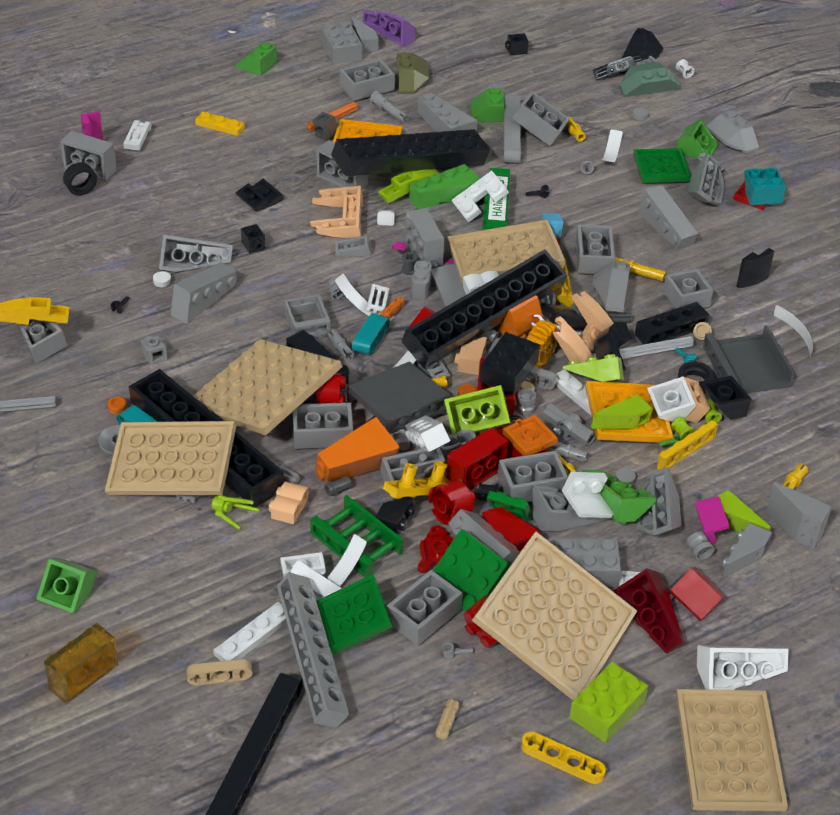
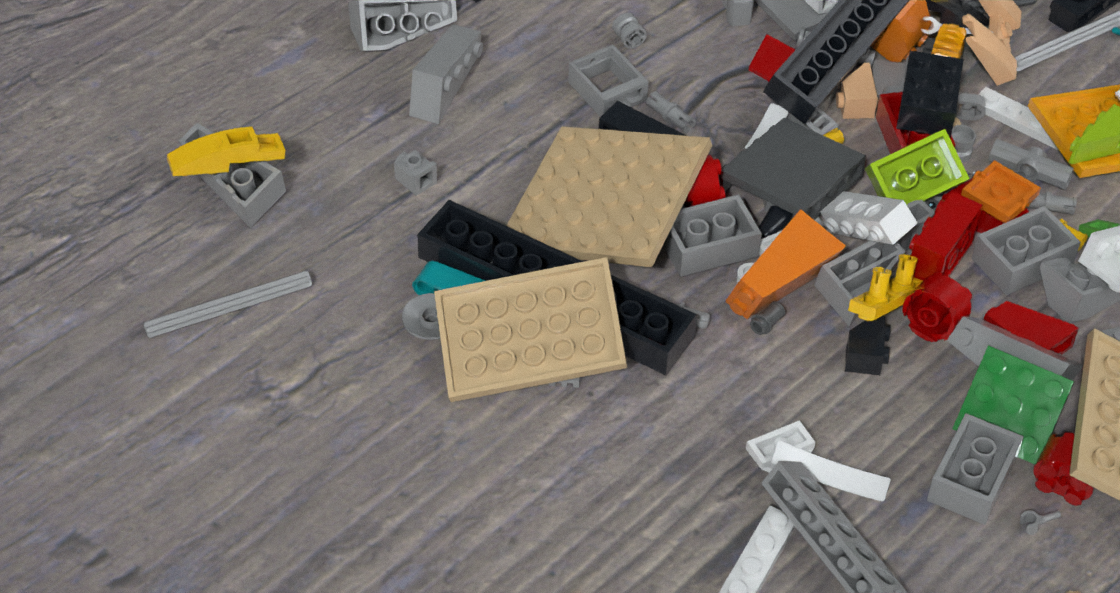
camera: 15 degrees left, 5 degrees up
(66, 584) = (463, 551): bright green slope -> none
(116, 405) = (400, 265): orange tile -> none
(118, 305) = (330, 114): black hand -> none
(162, 279) = (373, 65): white tile -> none
(224, 504) = (626, 380): lime plant -> none
(288, 502) = (714, 357): light nougat brick -> none
(338, 544) = (824, 408): green fence -> none
(346, 563) = (840, 426): white sticker -> none
(353, 295) = (671, 47): white sticker -> none
(354, 614) = (889, 499): green plate -> none
(370, 334) = (706, 88): teal beam -> none
(375, 307) = (684, 35): white tile -> none
(393, 307) = (715, 45): orange axle -> none
(433, 548) = (943, 380): red tile -> none
(465, 389) = (873, 146): orange tile -> none
(484, 490) = (975, 281): black bush -> none
(516, 506) = (1028, 295): green plate -> none
(601, 370) = (1042, 80): lime slope -> none
(611, 339) = (1035, 45): black arch -> none

